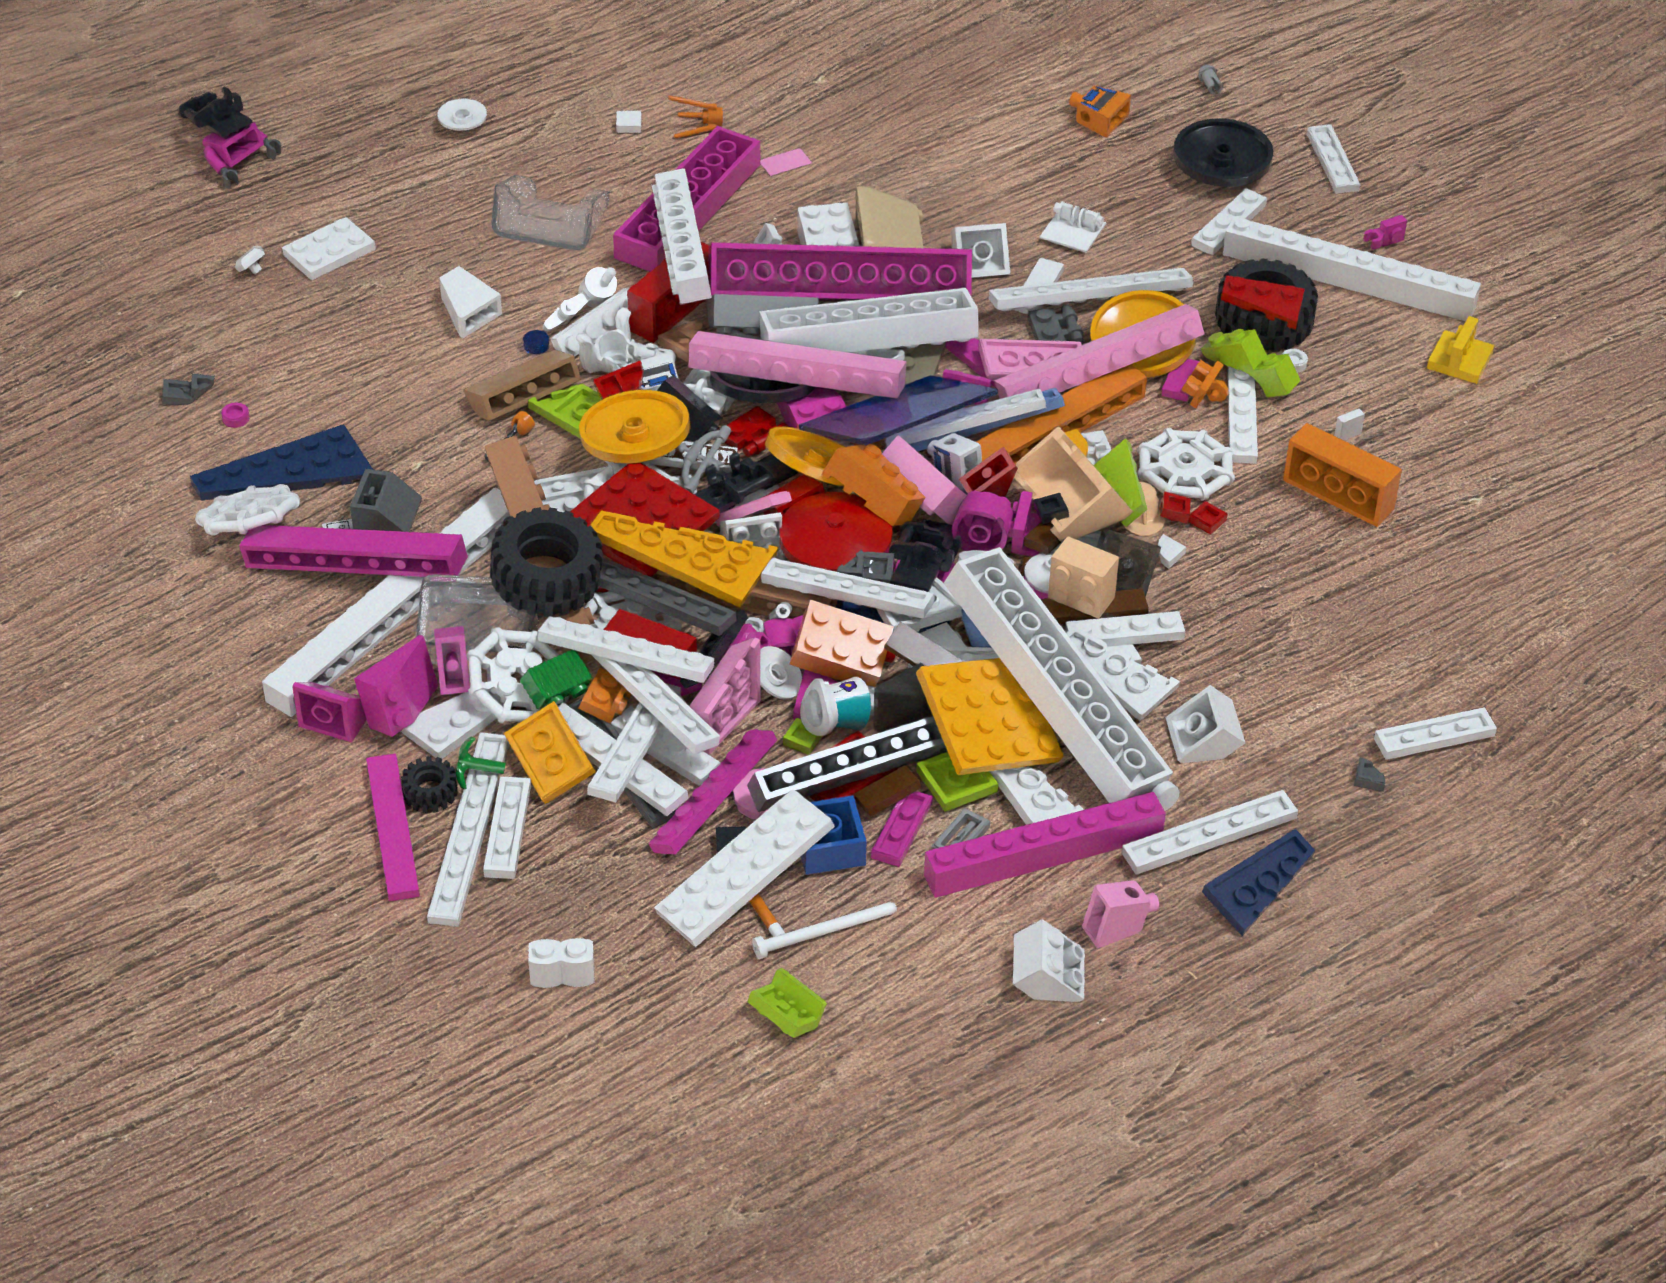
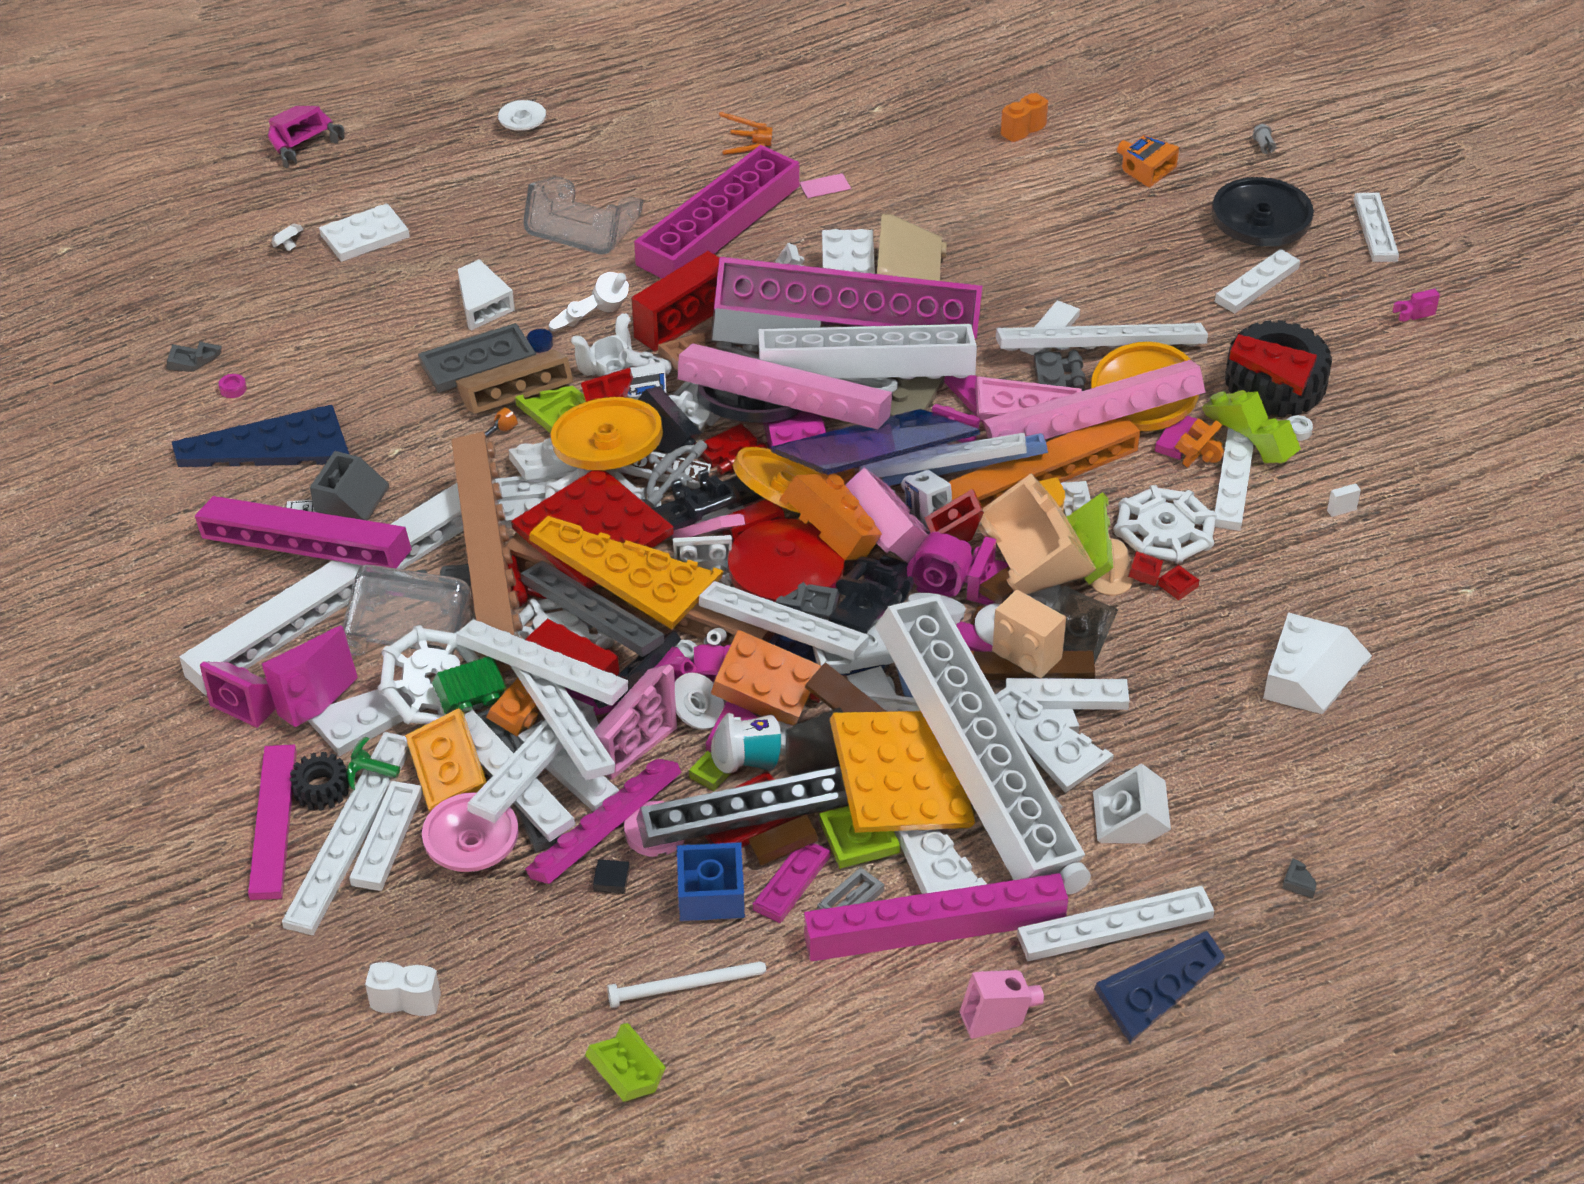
camera: 10 degrees right, 0 degrees up
(217, 114) = (286, 94): black piece -> none
(247, 509) = (213, 480): white plate -> none
(452, 660) = (367, 643): dark pink brick -> none
(475, 363) = (474, 355): none -> dark grey plate
(541, 588) = (473, 591): black tyre -> none
(567, 459) = (537, 460): none -> white plate
(586, 820) = (467, 840): none -> bright pink dish
(594, 324) = (593, 329): white plate -> none
(628, 122) = (681, 134): white tile -> none
(680, 237) = (694, 249): white brick -> none
(744, 867) = (612, 907): white plate -> none
(766, 916) = (623, 946): orange bar -> none
(971, 76) = (1024, 117): none -> orange brick
(988, 248) = (1002, 287): white slope -> none
(1048, 964) = (912, 1052): white slope -> none
(1050, 508) = (1013, 556): black tile -> none
(1073, 228) = (1097, 273): white hinge -> none
(1170, 551) = (1131, 613): white tile -> none
(1342, 474) = (1325, 551): orange brick -> none
(1348, 580) = (1313, 663): none -> white wedge
(1354, 269) = (1378, 340): white brick -> none
(1435, 733) = (1379, 840): white plate -> none
(1461, 353) = (1475, 436): yellow bracket -> none

